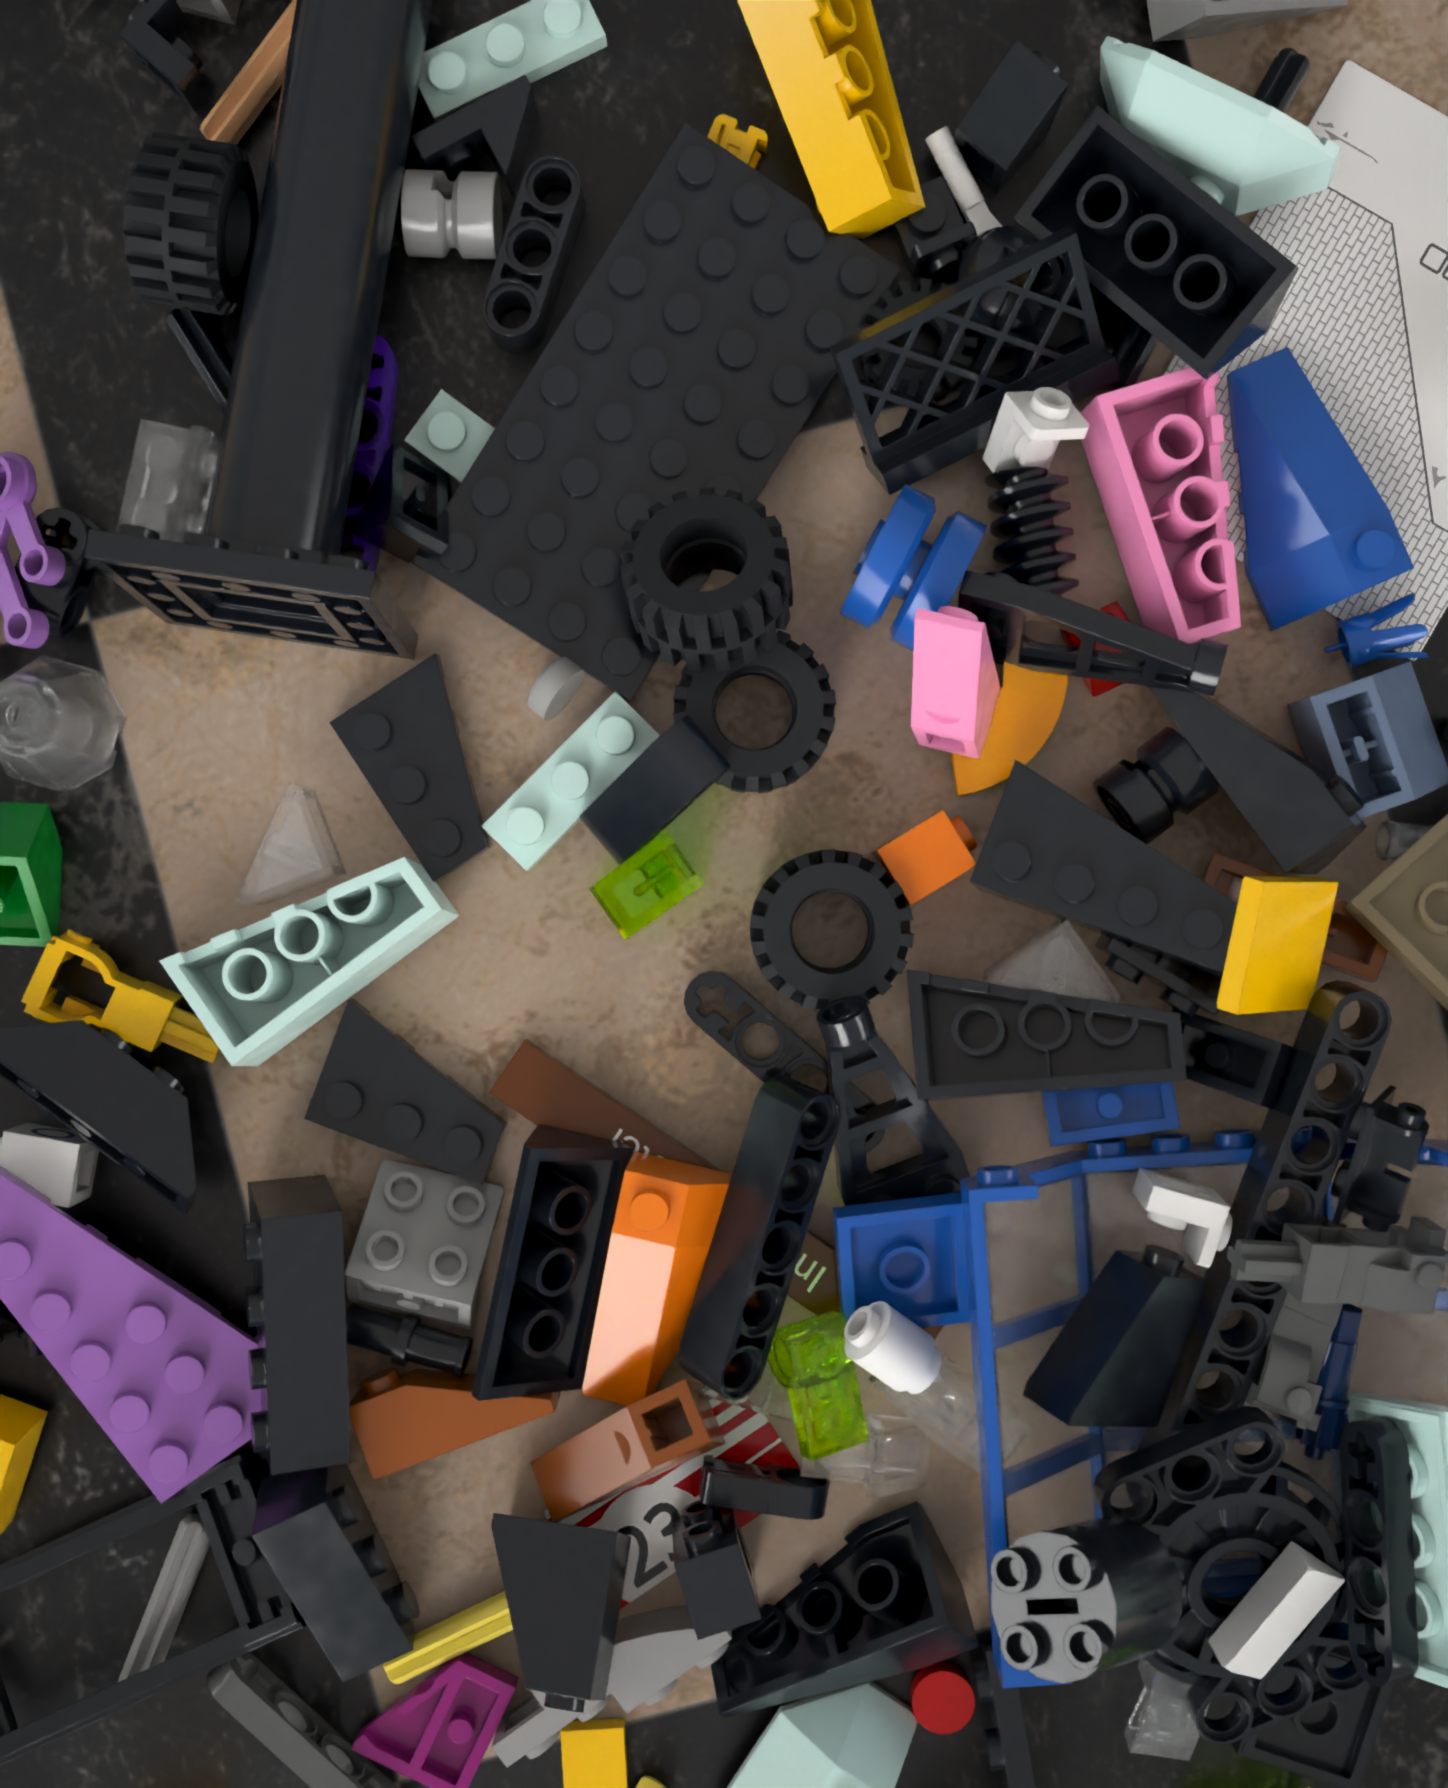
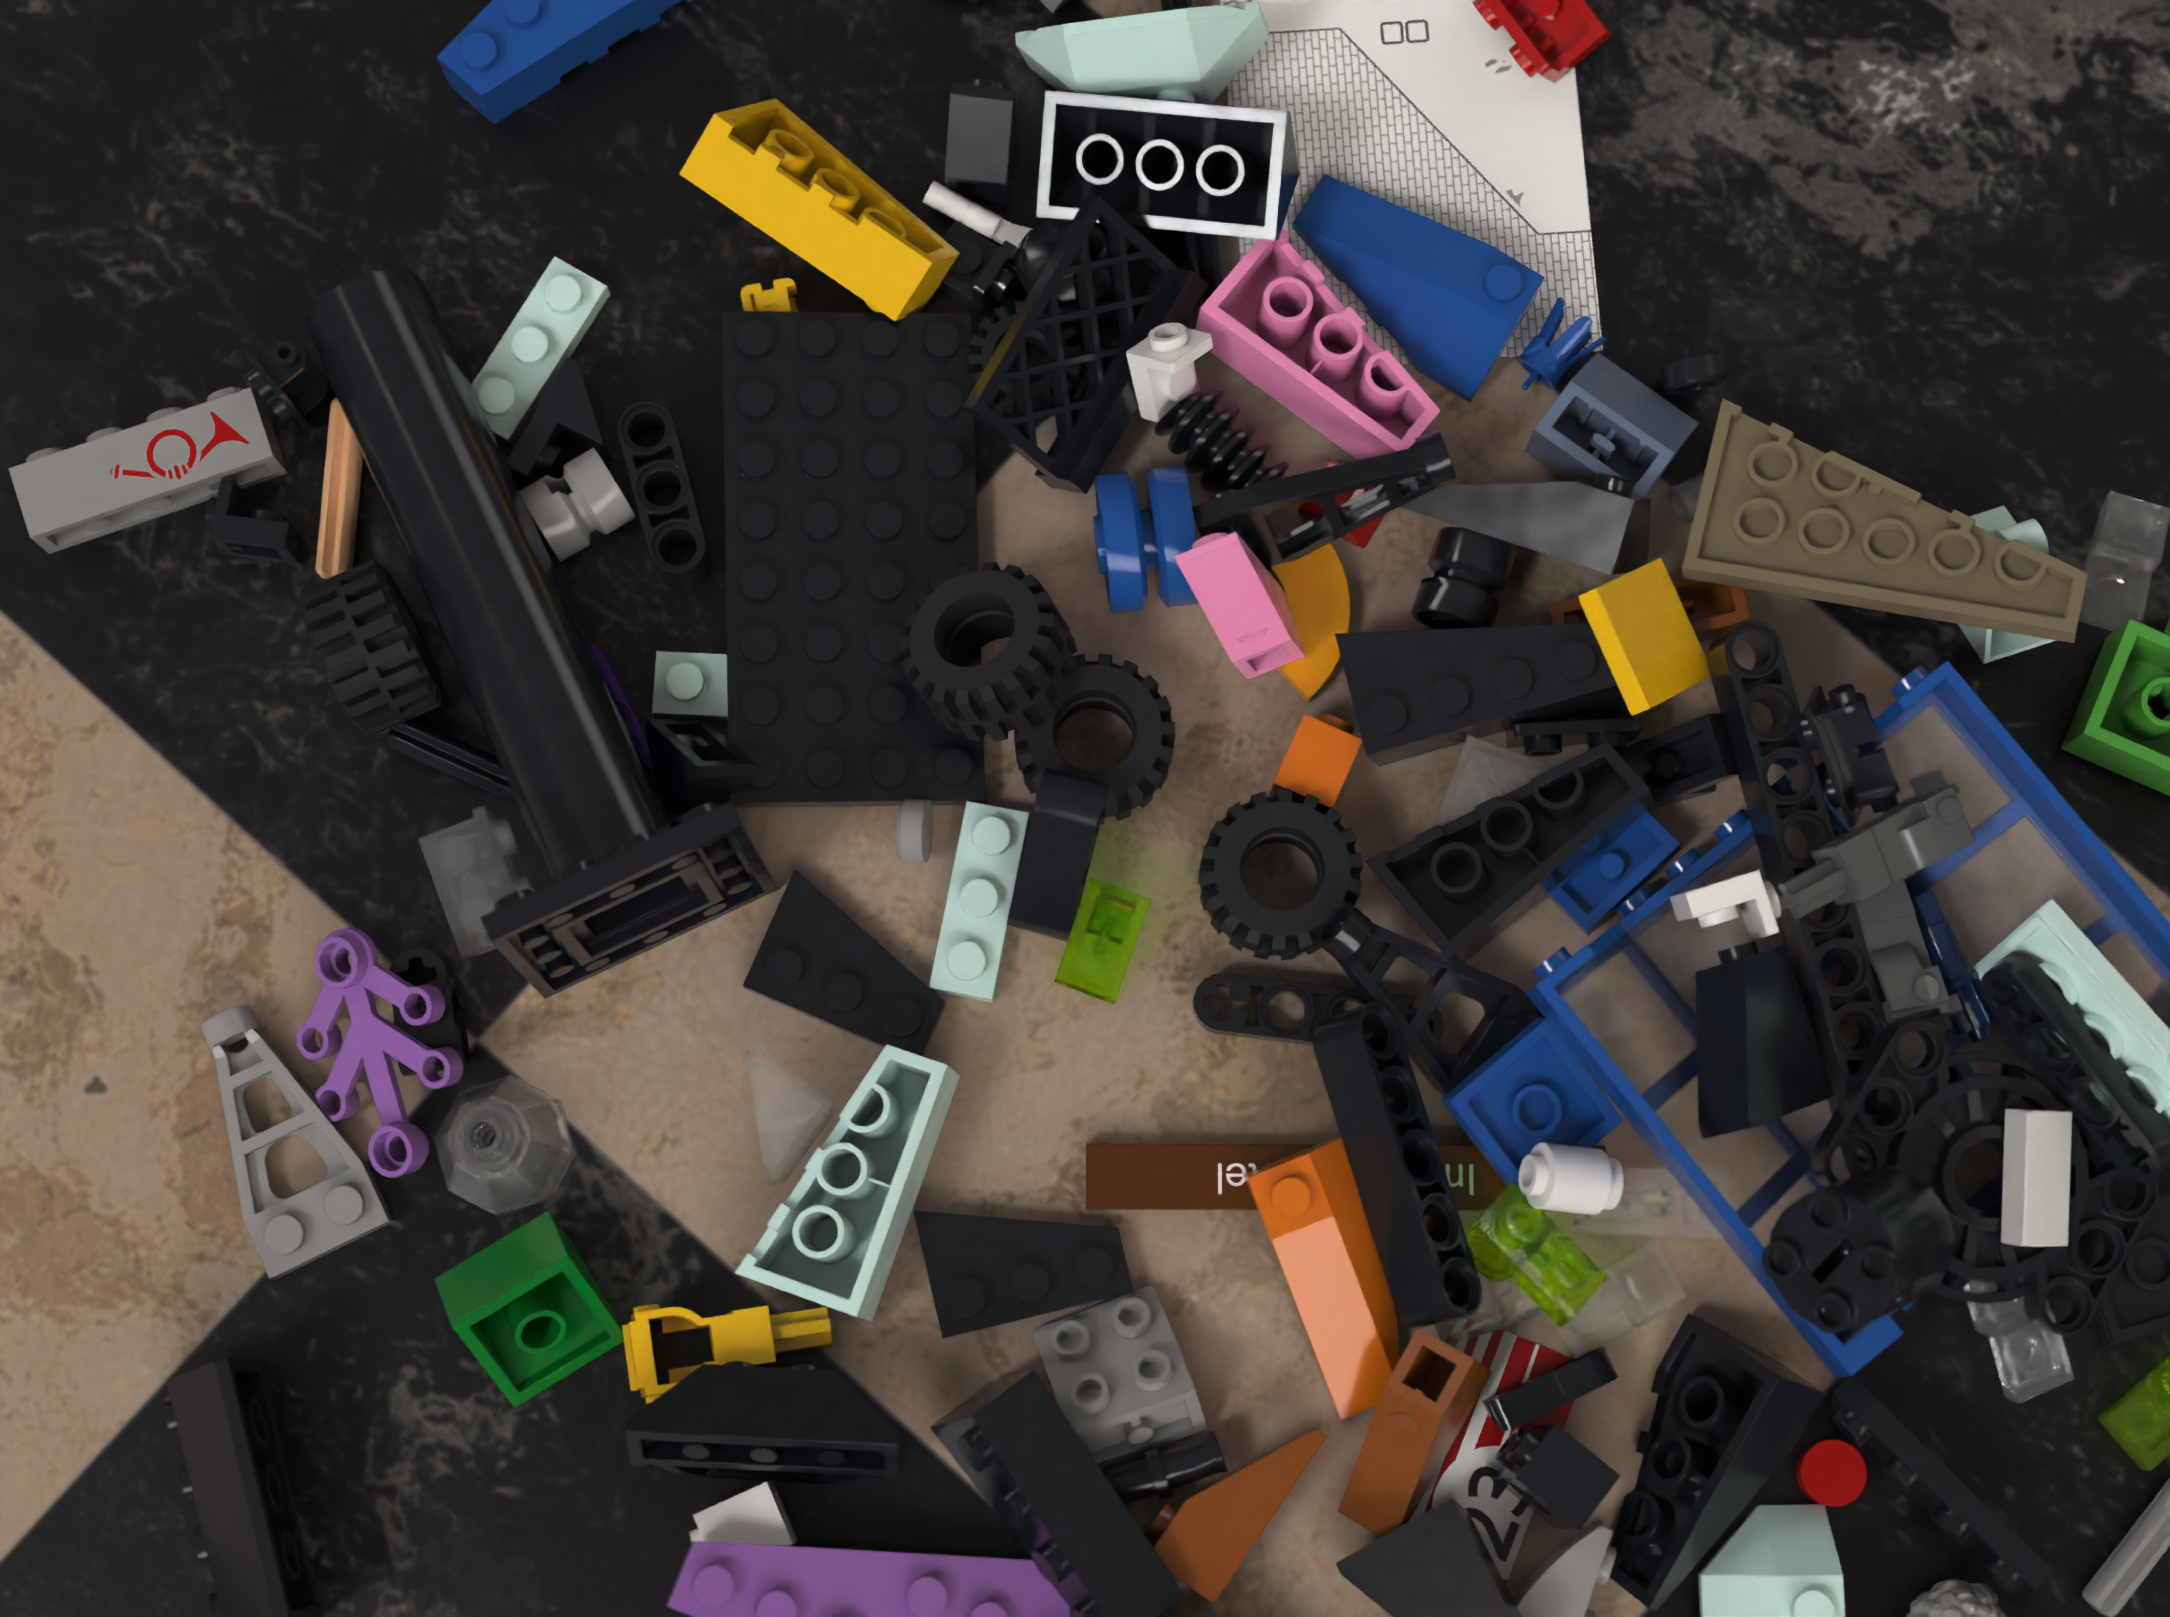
camera: 30 degrees left, 10 degrees down
(551, 1264) = (1243, 1313): black slope -> none

